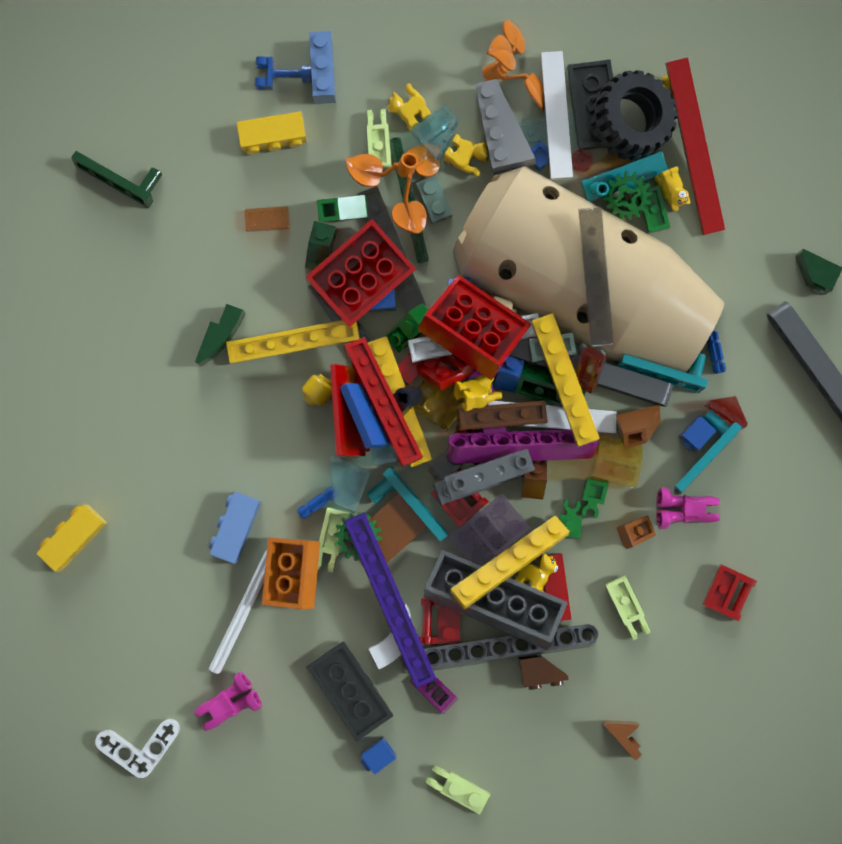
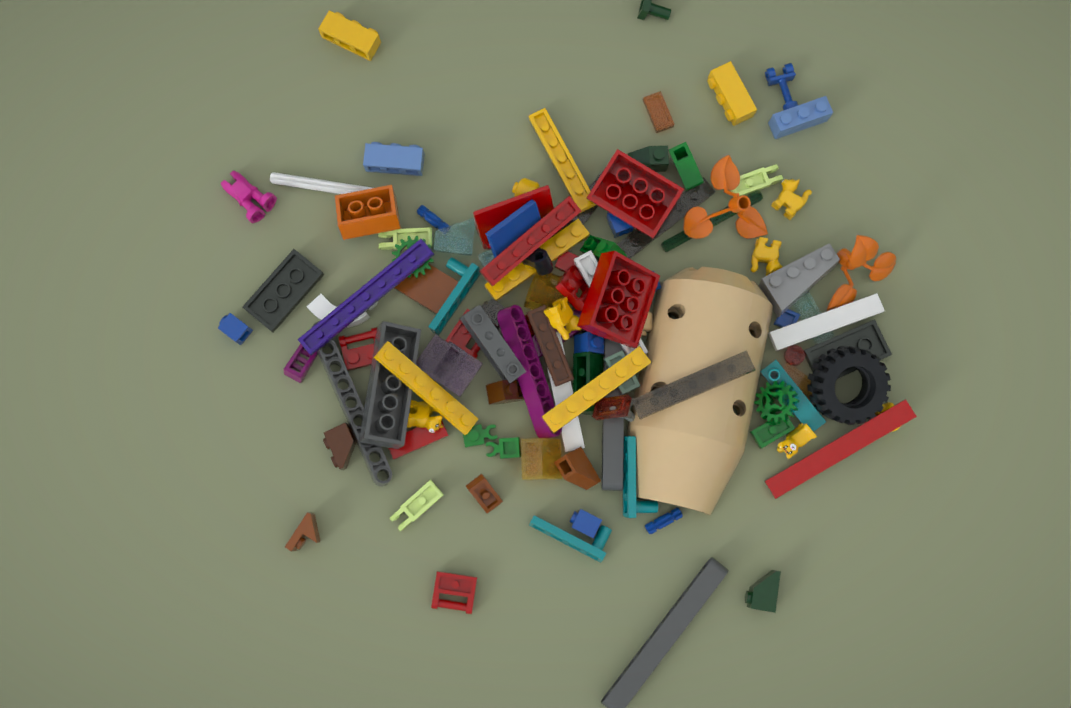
camera: 75 degrees right, 5 degrees down
(144, 755) = (189, 142): white beam -> none
(219, 334) = (548, 98): dark green slope -> none
(434, 199) = (719, 241): sand green plate -> none
(436, 131) = (778, 226): clear light blue wing -> none
(460, 790) = (223, 405): yellowish green hinge -> none
(691, 508) = (518, 537): dark pink piece -> none
(728, 409) = (616, 546): clear red slope -> none

